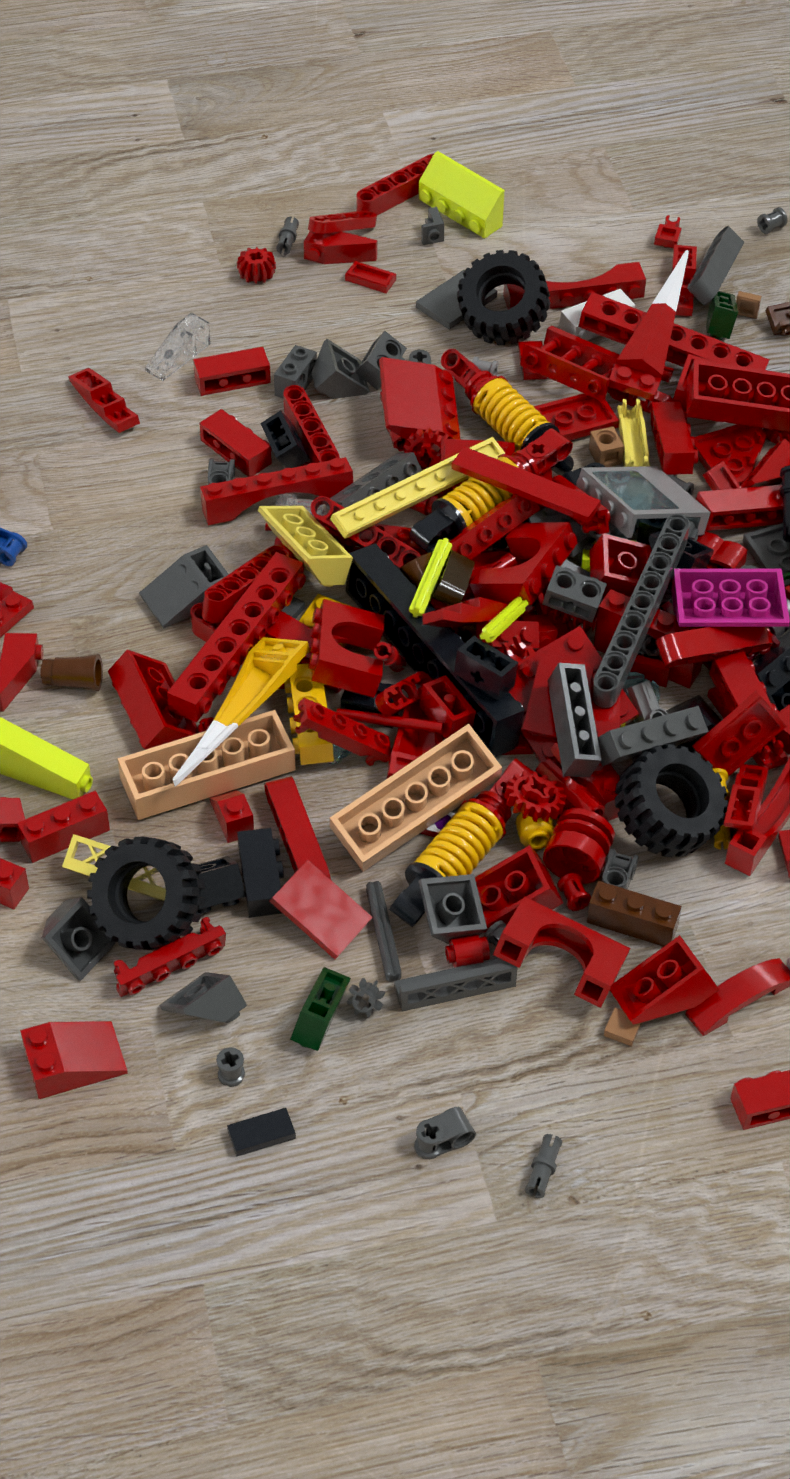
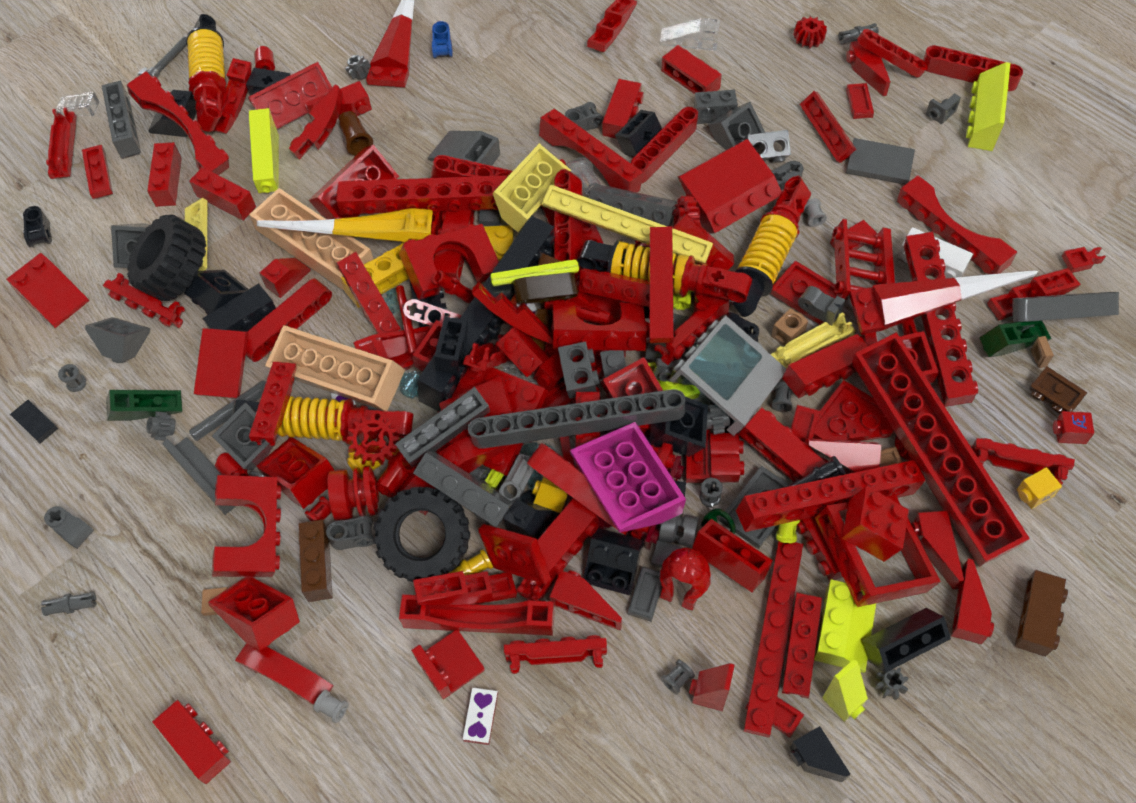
camera: 65 degrees right, 10 degrees up
(40, 684) = (324, 119): none -> red slope
(388, 310) = (827, 127): none -> red plate
(438, 854) = (273, 403): none -> red piece
(496, 271) = (880, 161): black tyre -> none
(503, 619) = (508, 334): neon yellow axle -> none
(604, 409) = (821, 305): none -> dark grey leg
(678, 691) = (549, 495): none -> yellow brick

